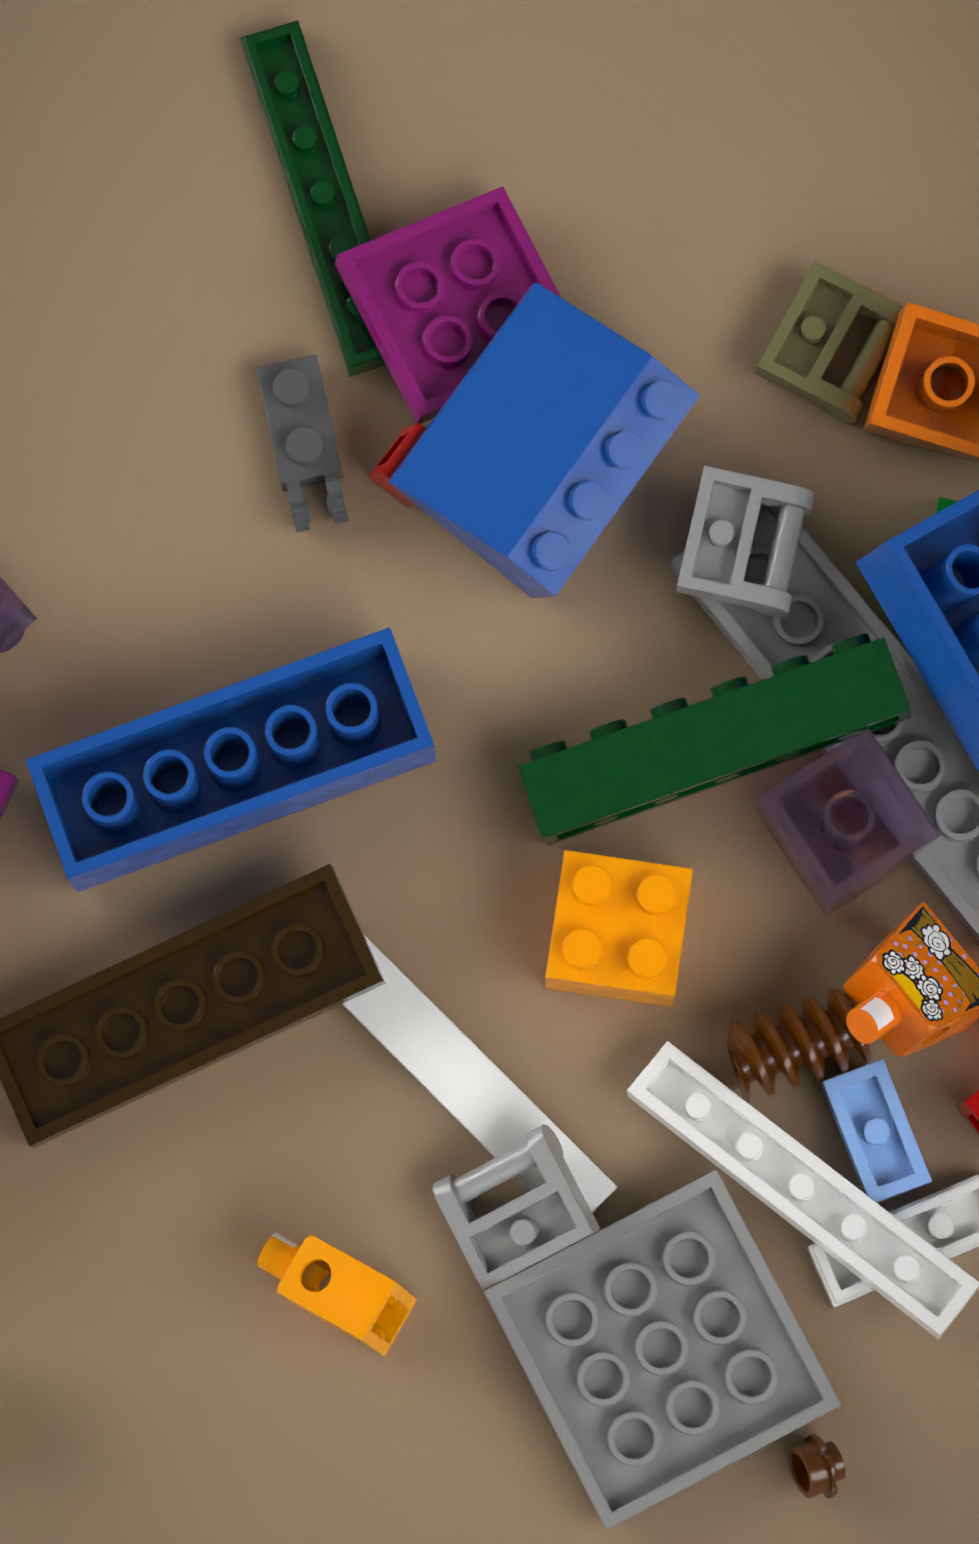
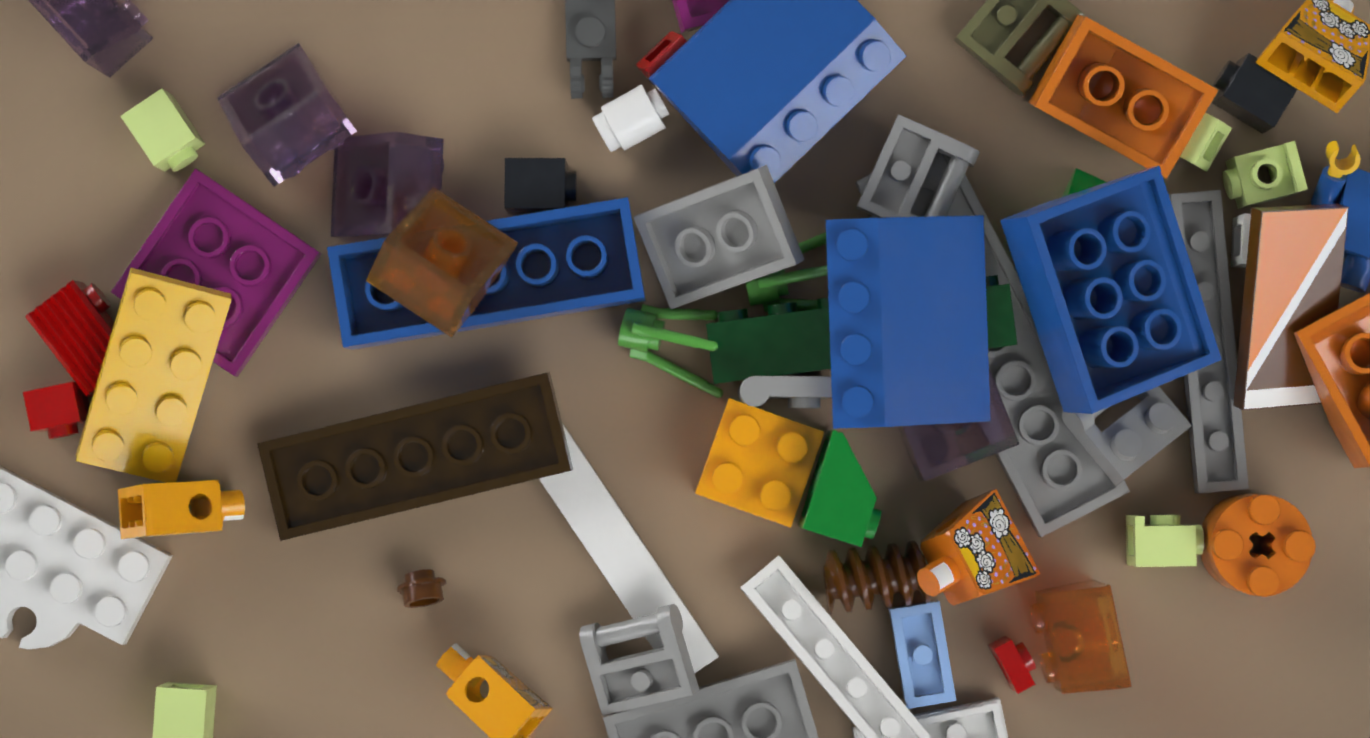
camera: 10 degrees right, 10 degrees up
(80, 672) = (382, 181): none -> clear purple slope
(171, 745) = (441, 261): none -> clear orange slope
(220, 1174) = (421, 588): none -> reddish brown plate
(273, 637) = (538, 184): none -> black brick
(375, 540) = (631, 118): none -> white brick
(444, 793) = (643, 332): none -> bright green plant
(512, 657) = (719, 237): none -> light grey plate
(585, 700) = (769, 288): none -> bright green plant
(643, 824) = (801, 391): none -> light grey plate
(730, 946) = (840, 496): none -> green slope
(767, 705) = (908, 321): none -> blue slope

